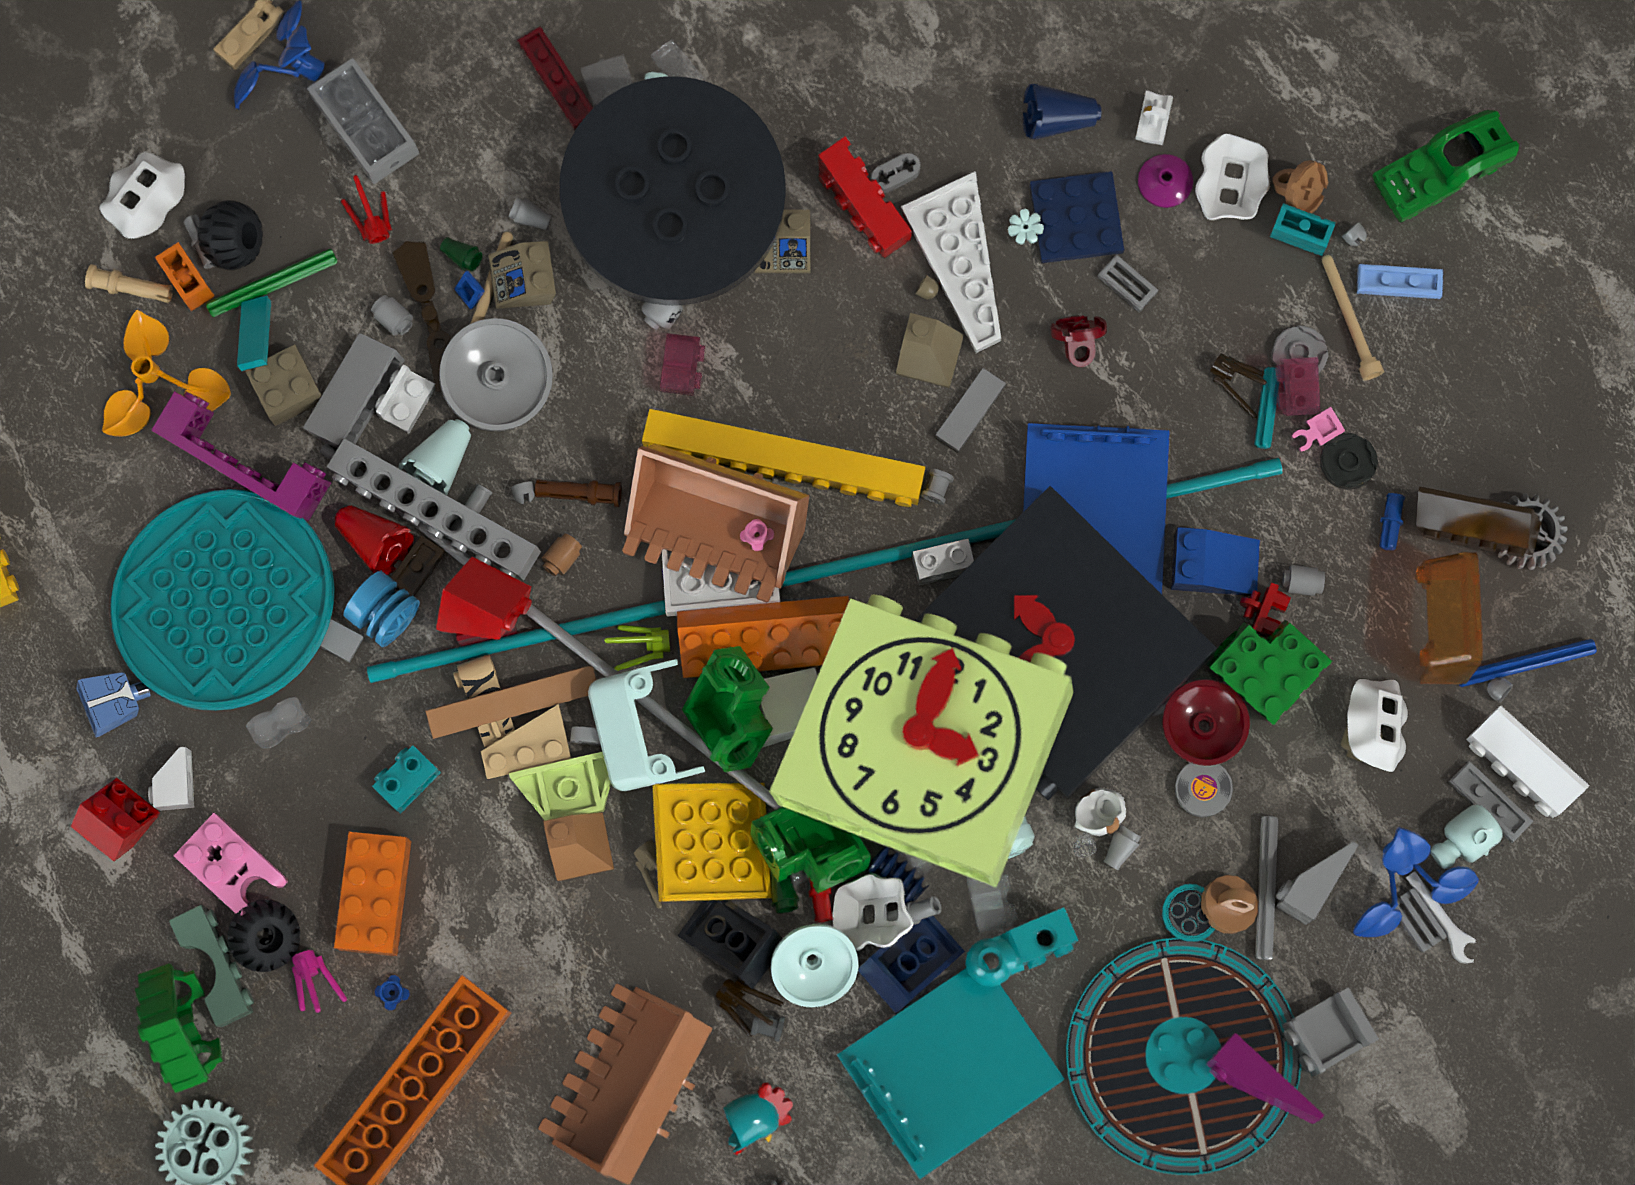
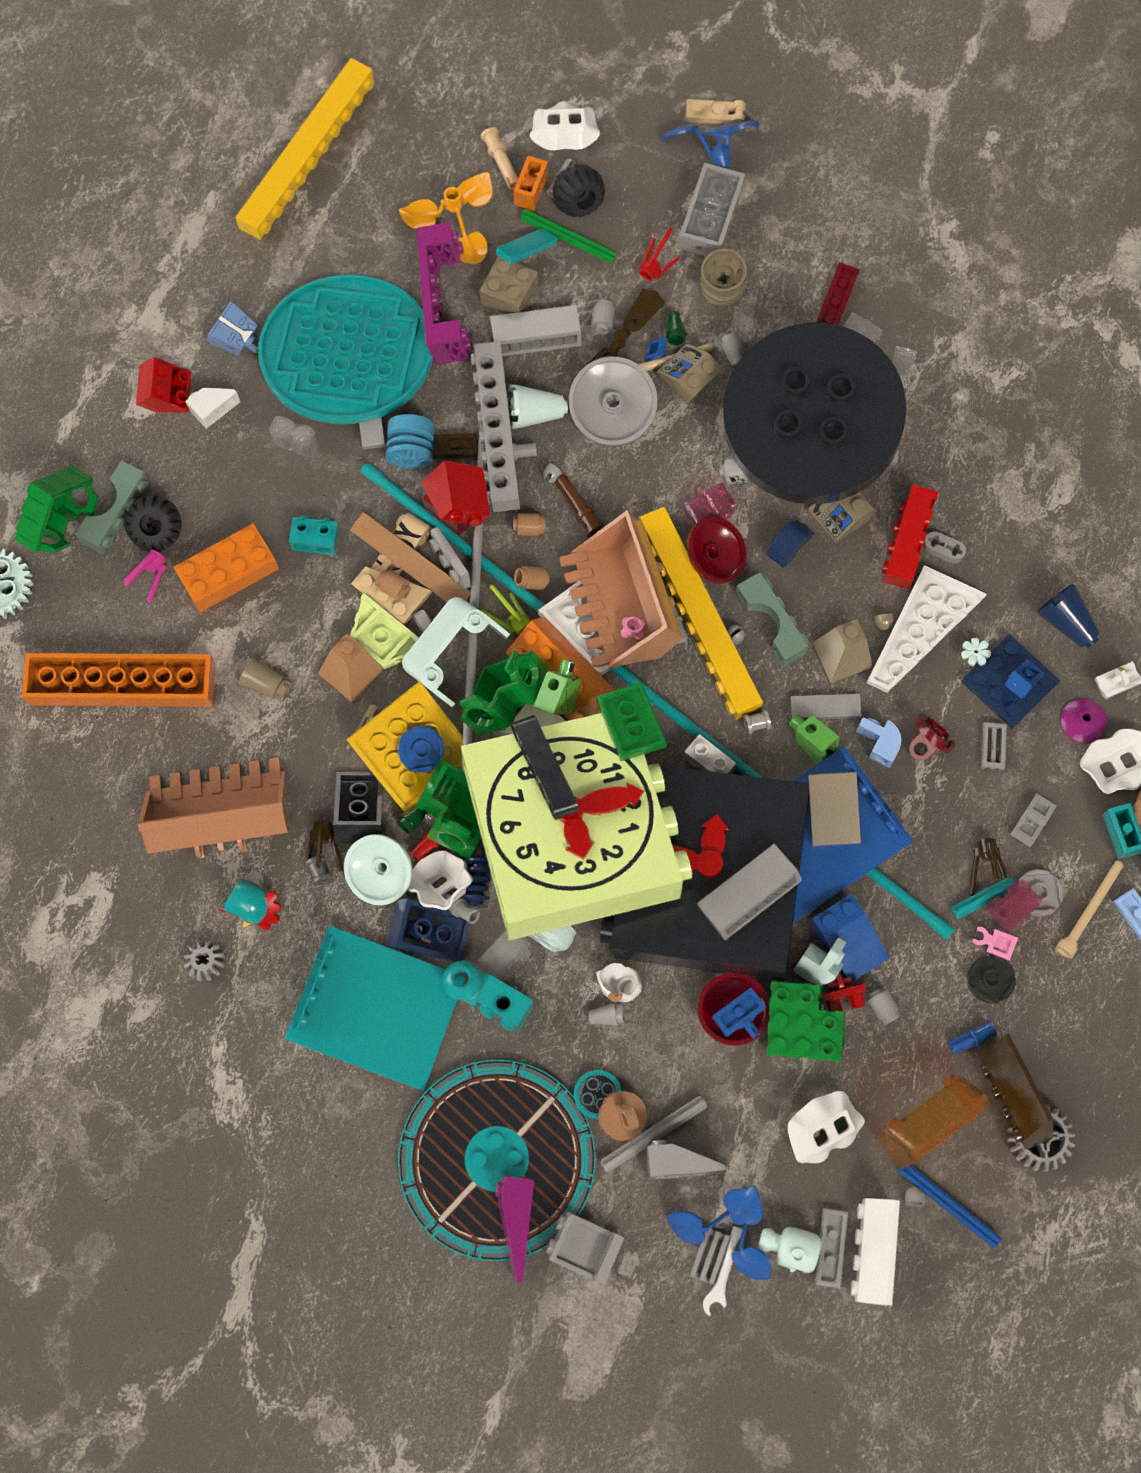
camera: 50 degrees right, 5 degrees down
(236, 868) = (183, 468): bright pink brick -> none
(374, 538) = (452, 407): red cone -> none
(383, 992) = (170, 619): blue plate -> none
(404, 399) = (555, 362): white bracket -> none
(441, 152) = (727, 267): none -> dark tan wheel
(526, 737) = (393, 585): none -> medium nougat brick
(528, 939) = (265, 680): none -> dark tan plant
(540, 661) = (449, 559): none -> light grey tile
(622, 594) = (531, 578): none -> medium nougat brick
(723, 834) = (420, 749): none -> blue tile
(734, 392) = (724, 547): none -> dark red dish
(774, 653) = (559, 690): none -> bright green torso
(780, 316) = (789, 542): none -> dark blue brick
(810, 387) = (757, 595): none -> sand green arch
(838, 439) = (739, 637): none -> light grey hinge
(859, 725) = (544, 767): none -> black beam
(868, 608) = (631, 721): none -> green tile
(1008, 448) = (814, 738): none -> bright green torso
(1050, 378) = (886, 738): none -> light blue brick
(1085, 479) = (834, 808): none -> dark tan tile
(1088, 203) = (1024, 678): none -> blue slope
(1116, 622) = (749, 891): none -> light grey brick
(1203, 789) = (688, 1042): light grey tile -> none
(1218, 720) = (740, 1014): none -> blue plate
(1224, 609) = (820, 966): none -> light aqua brick
(1226, 303) = (1033, 820): none -> light grey slope

